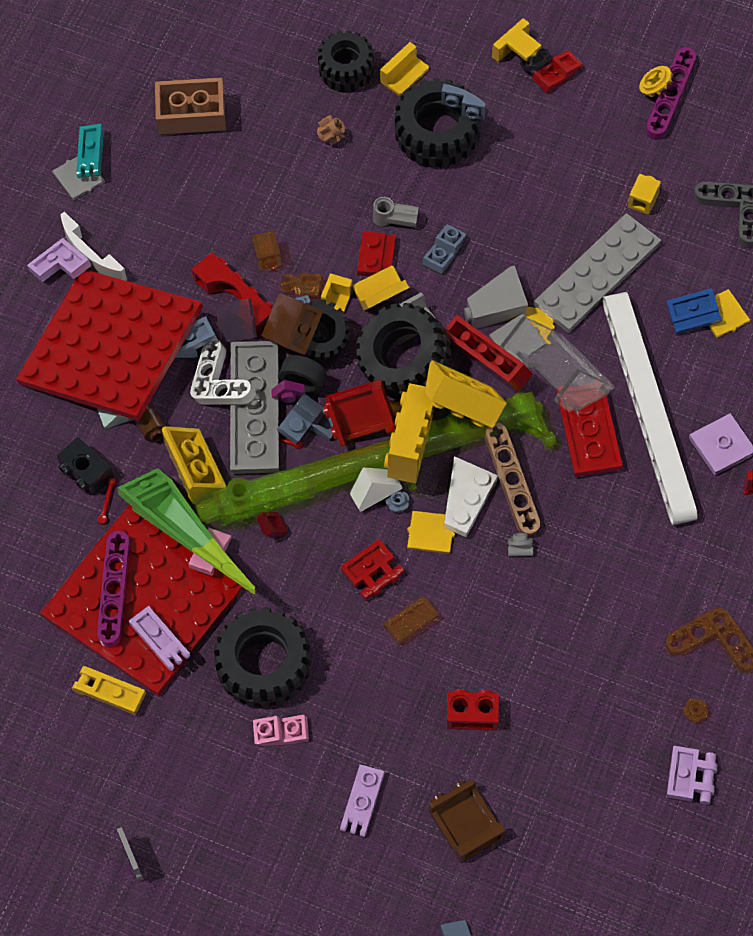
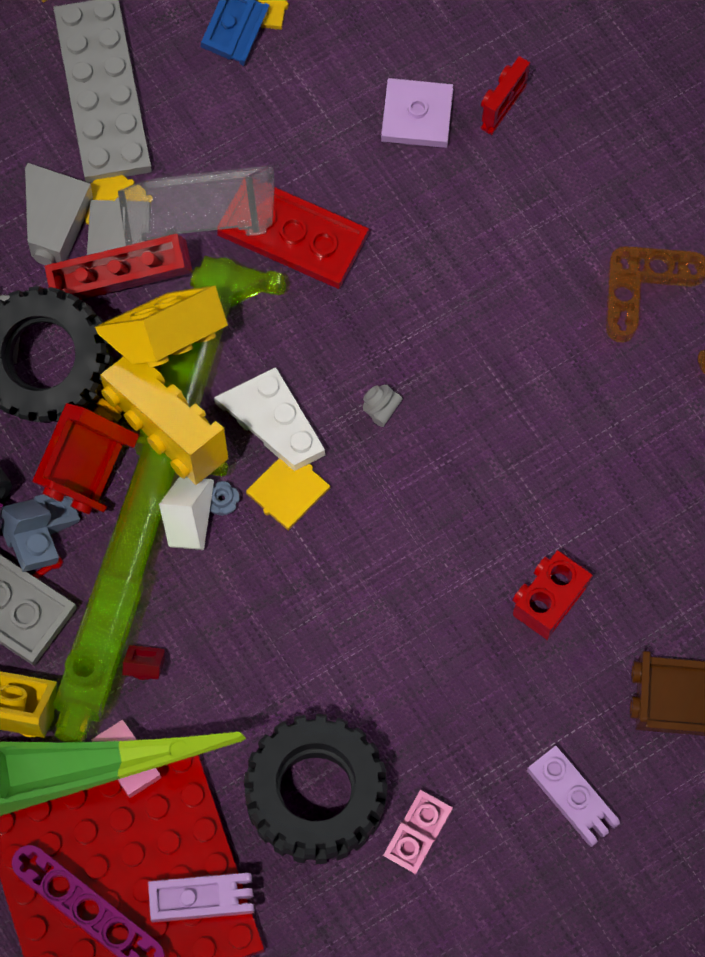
camera: 60 degrees left, 5 degrees up
(368, 563) = (277, 586): red plate -> none
(411, 620) = (386, 586): clear orange plate -> none
(512, 491) = (313, 350): medium nougat beam -> none
(650, 409) = (316, 152): white beam -> none

